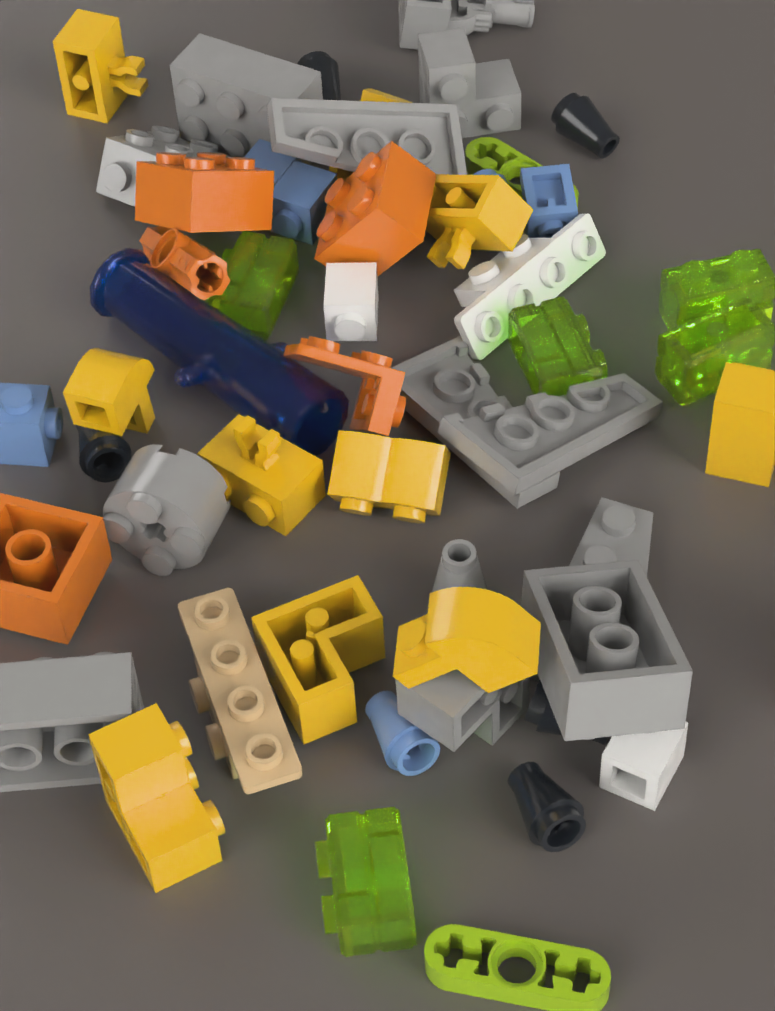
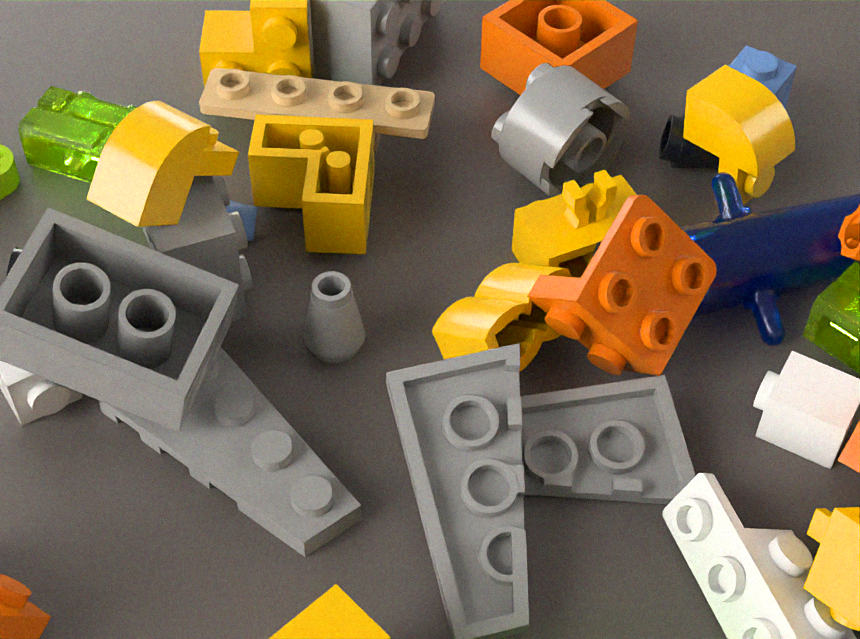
camera: 115 degrees right, 0 degrees up
(554, 347) = (608, 570): clear neon green brick -> none

